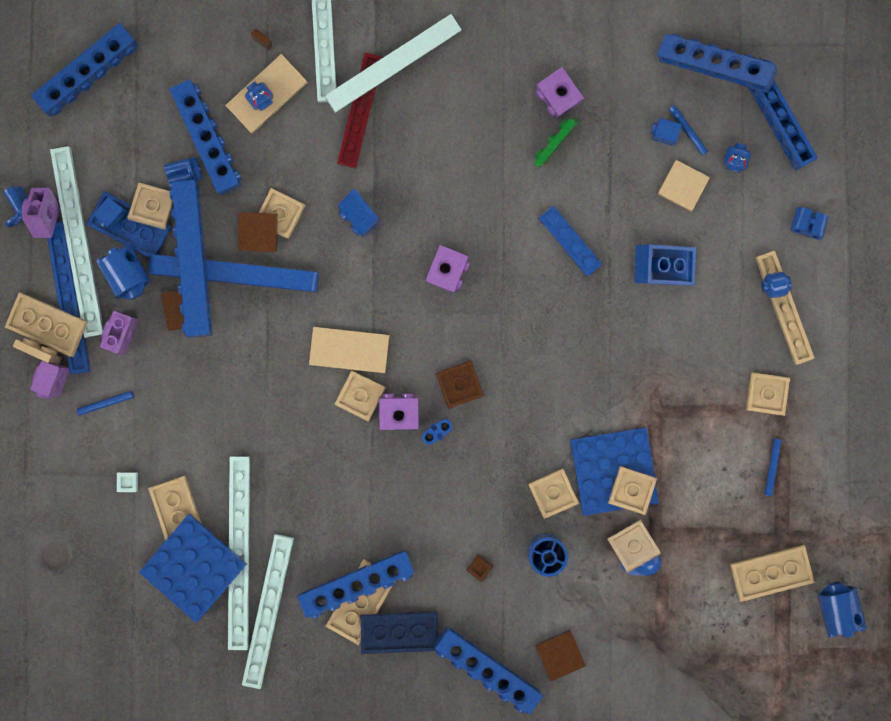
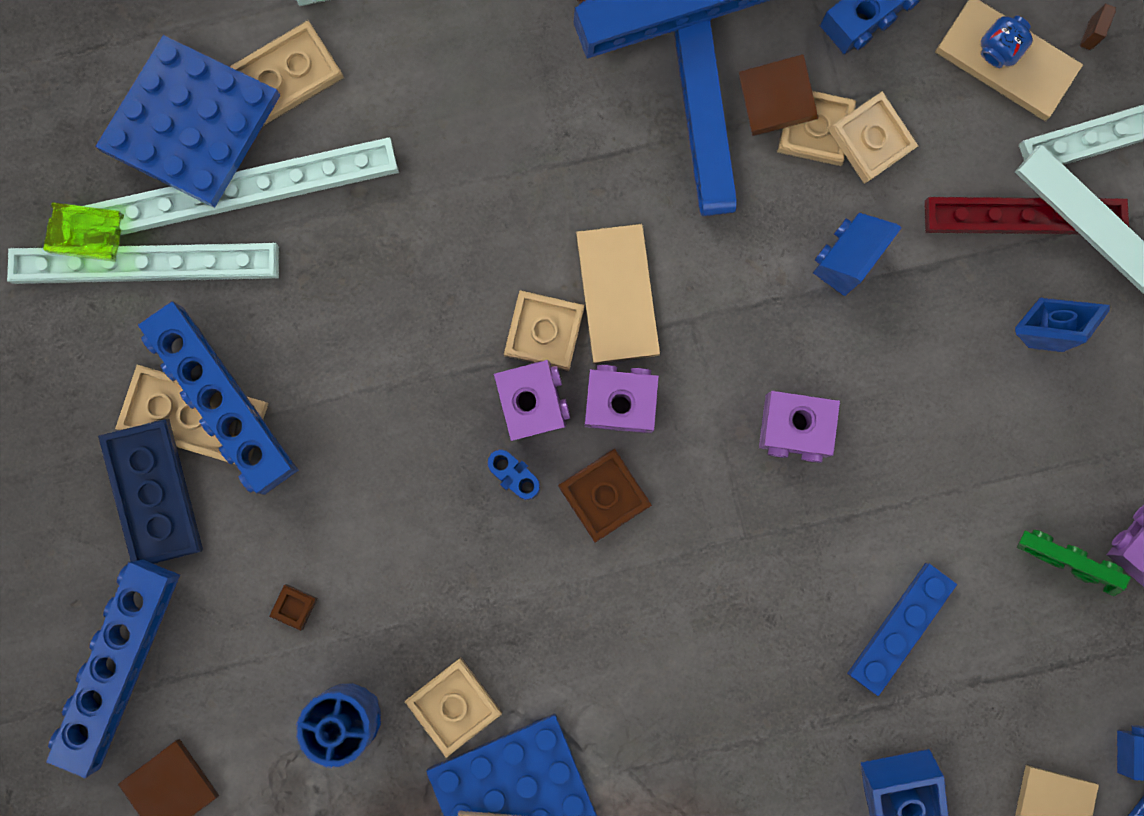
camera: 70 degrees right, 5 degrees down
(244, 639) = (83, 232): none -> clear neon green plate
(294, 184) = (873, 137): none -> tan tile
(405, 352) = (637, 387): none -> medium lavender brick
(425, 112) = (1060, 324): none -> blue slope

